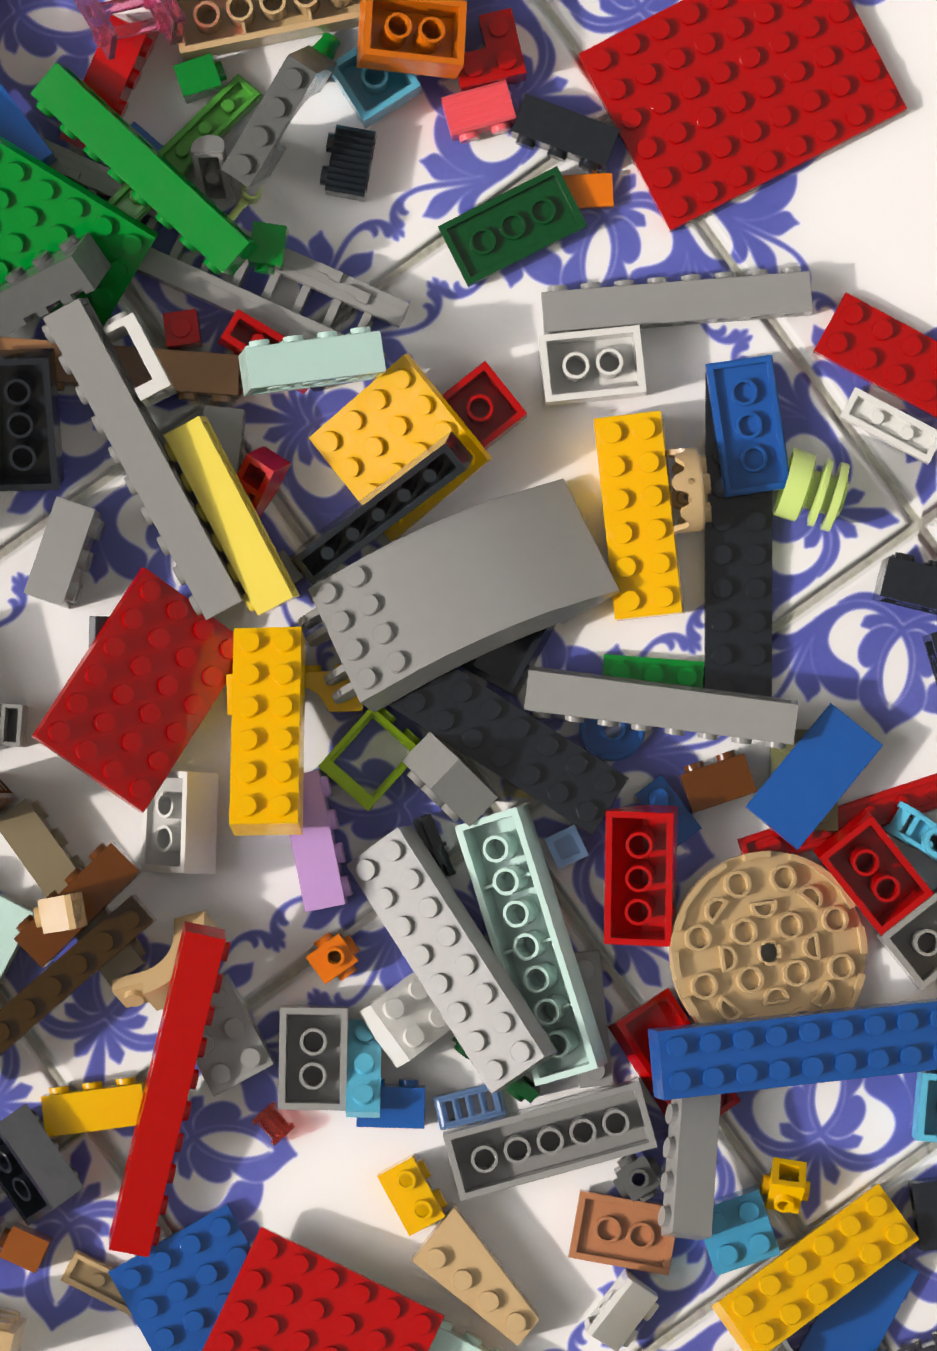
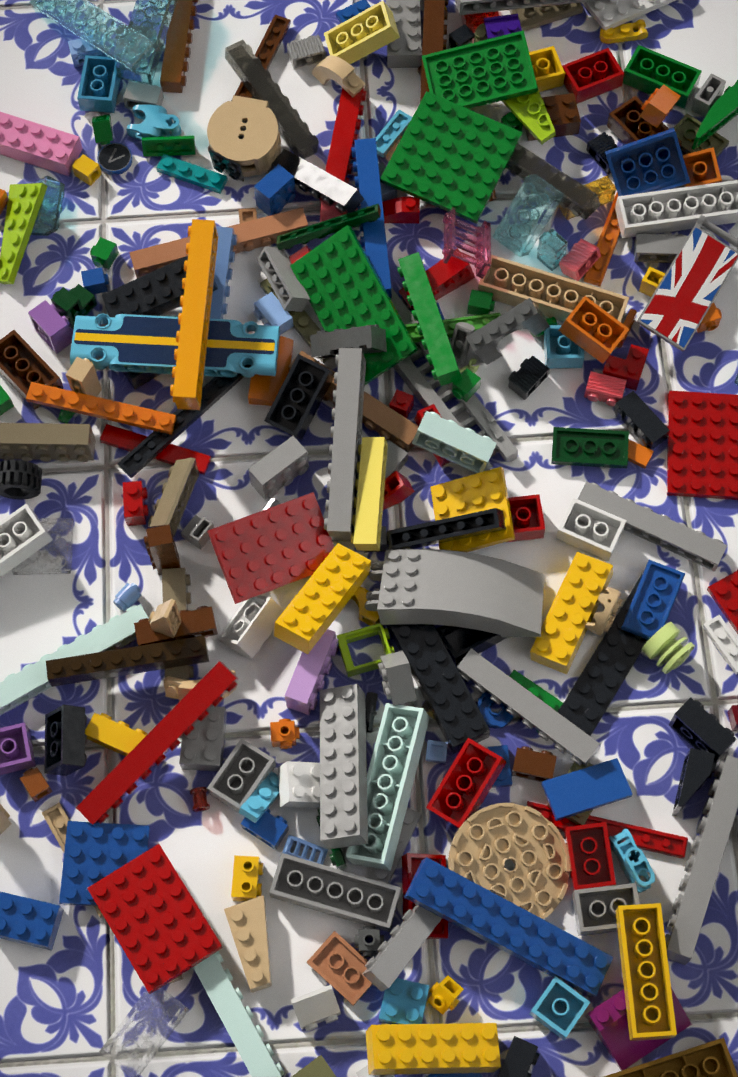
camera: 30 degrees right, 20 degrees down
(160, 386) = (372, 413): white panel -> none

